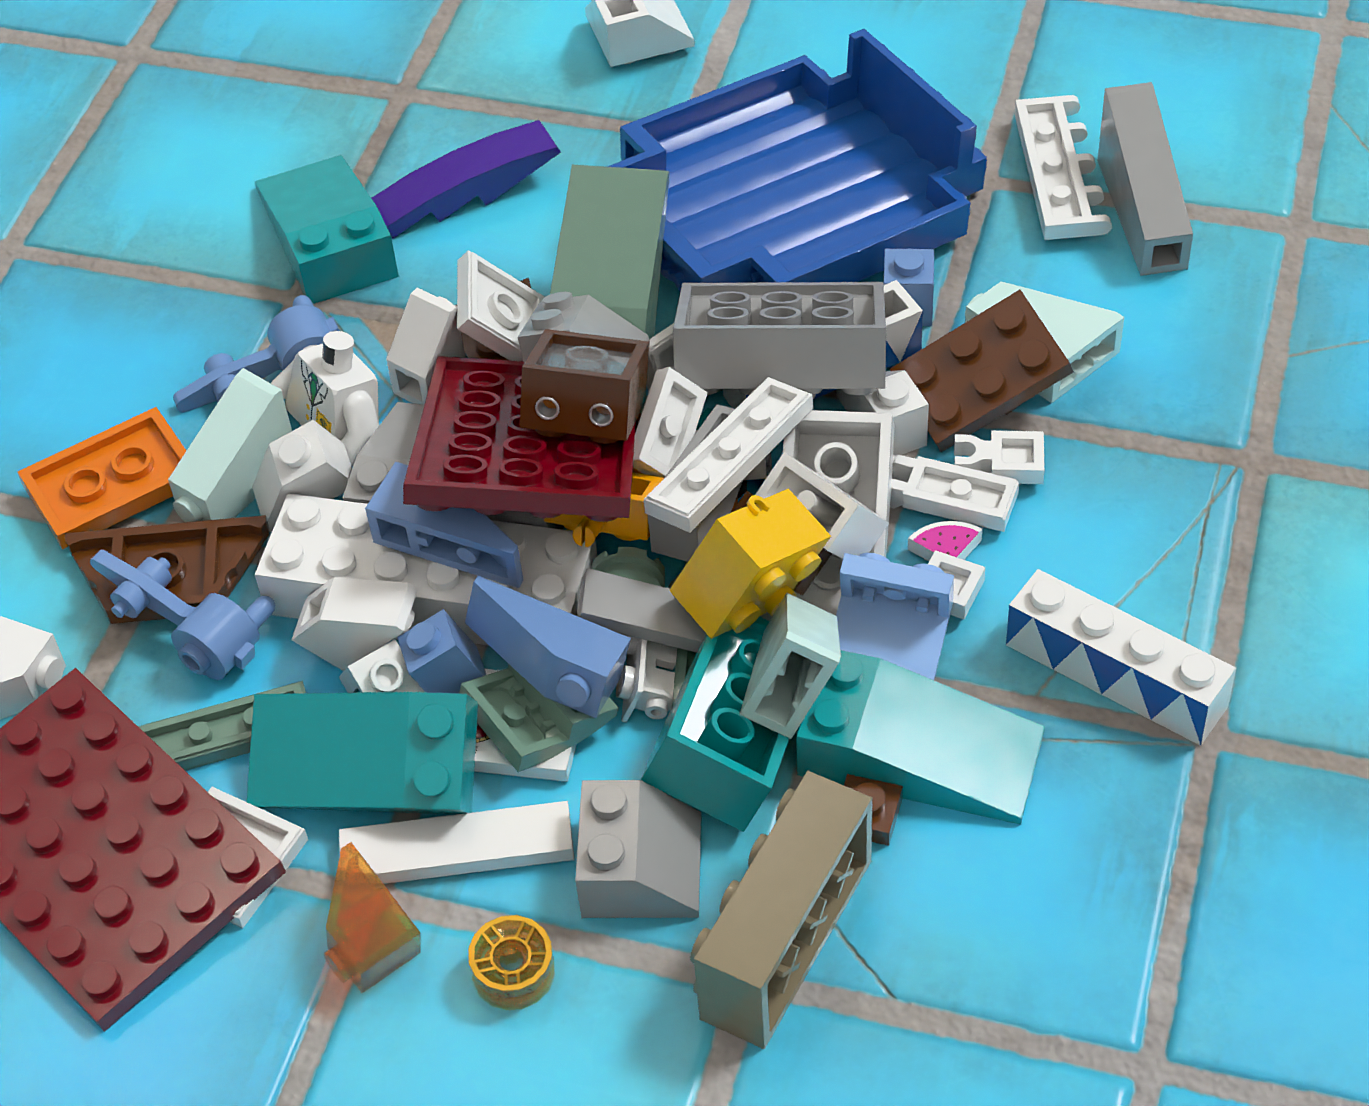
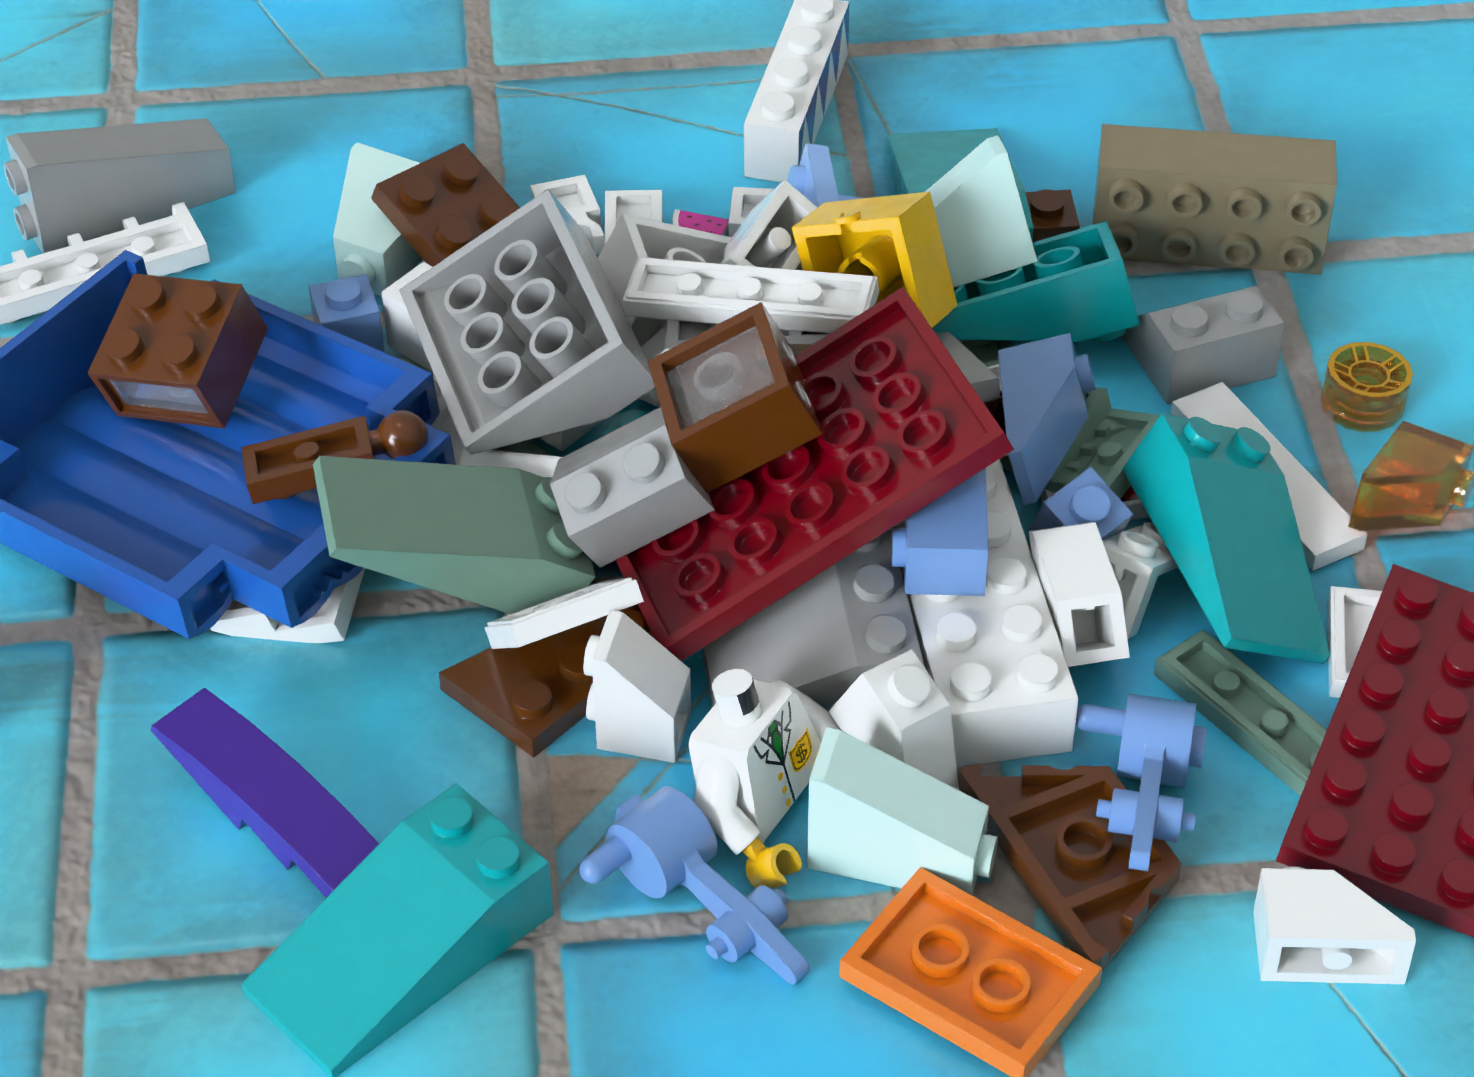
camera: 115 degrees left, 5 degrees down
(720, 217) = (285, 464): none -> reddish brown plate
(868, 154) = (178, 350): none -> reddish brown piece

